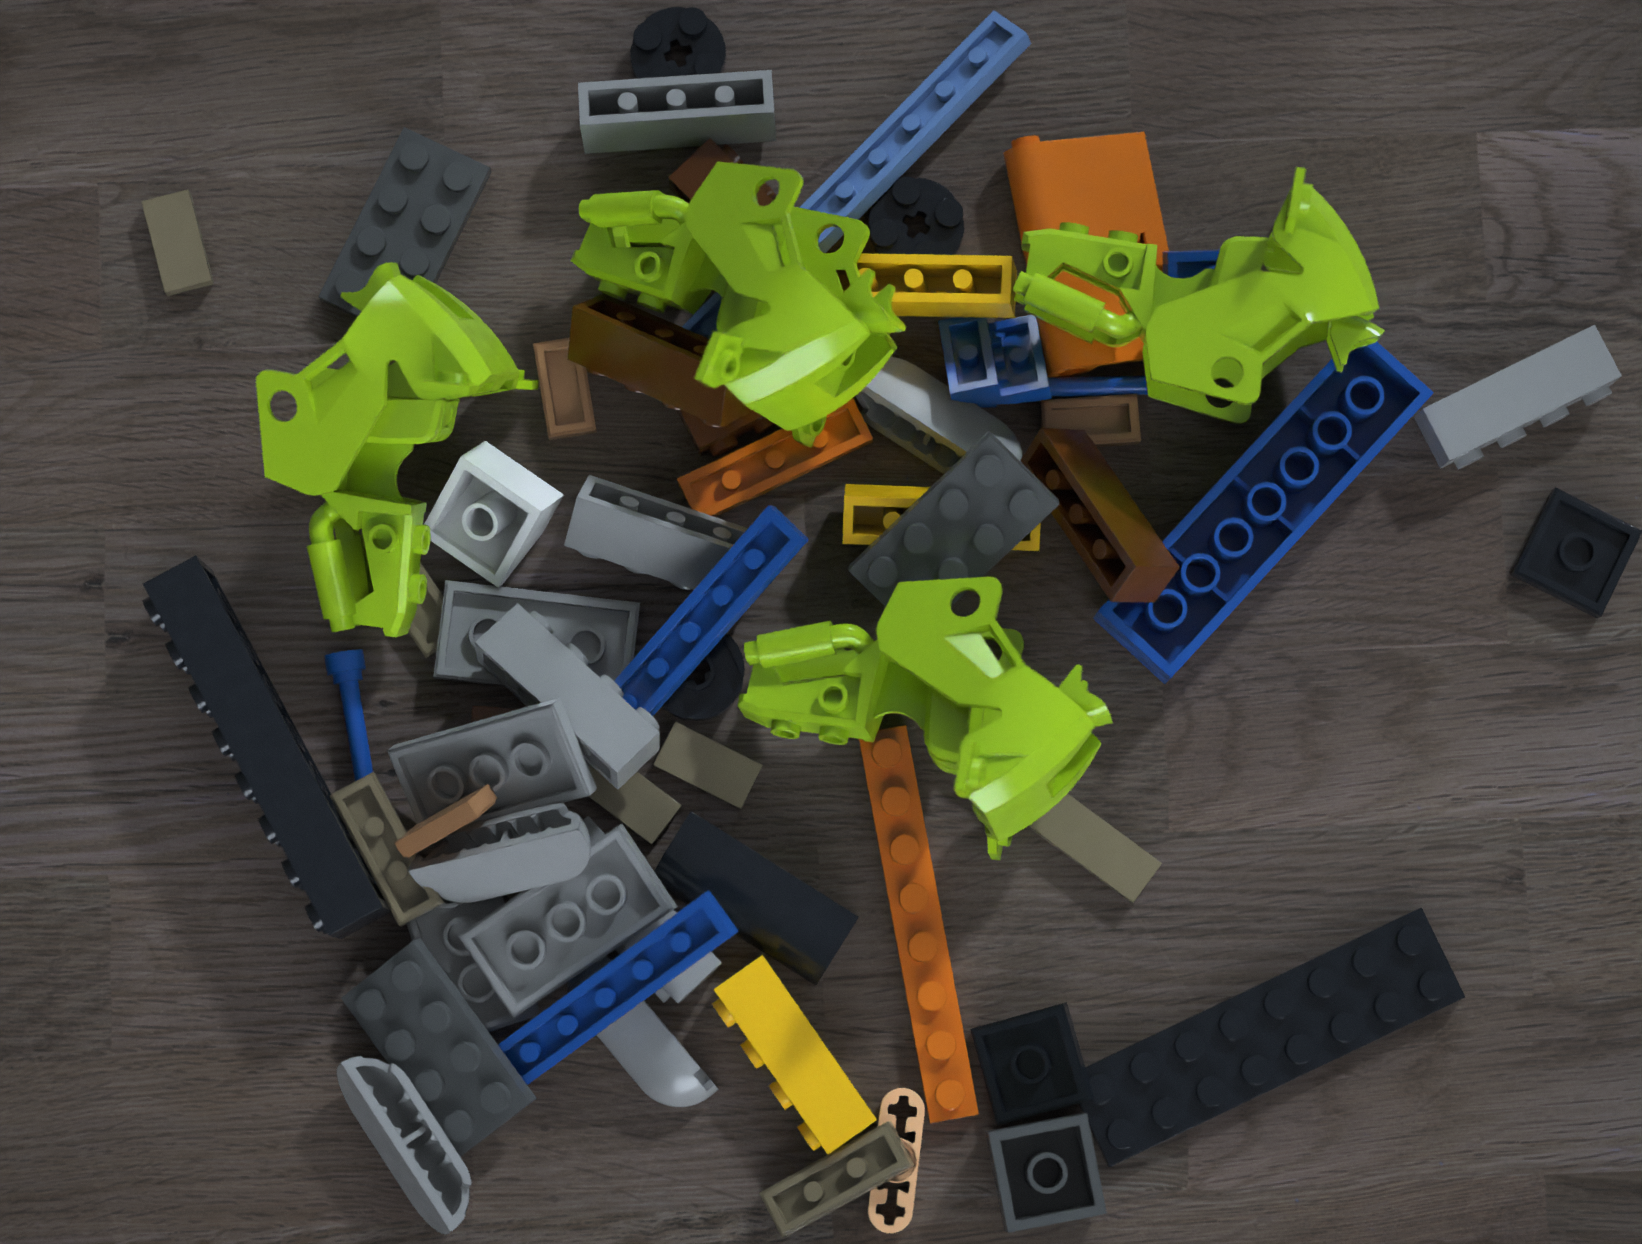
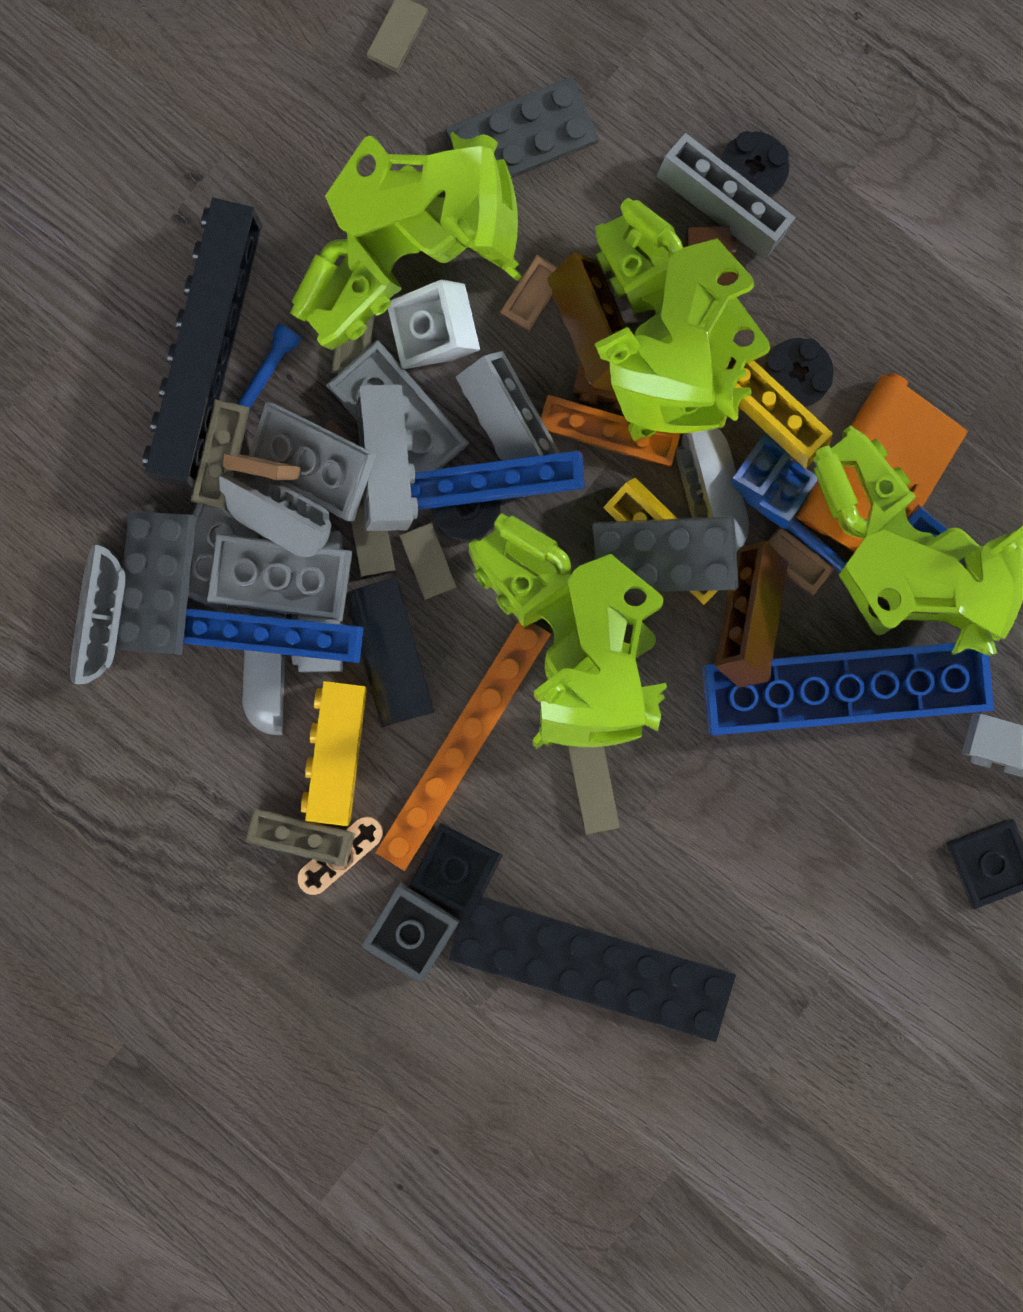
camera: 45 degrees right, 5 degrees up
(905, 135) = (840, 317): medium blue plate -> none

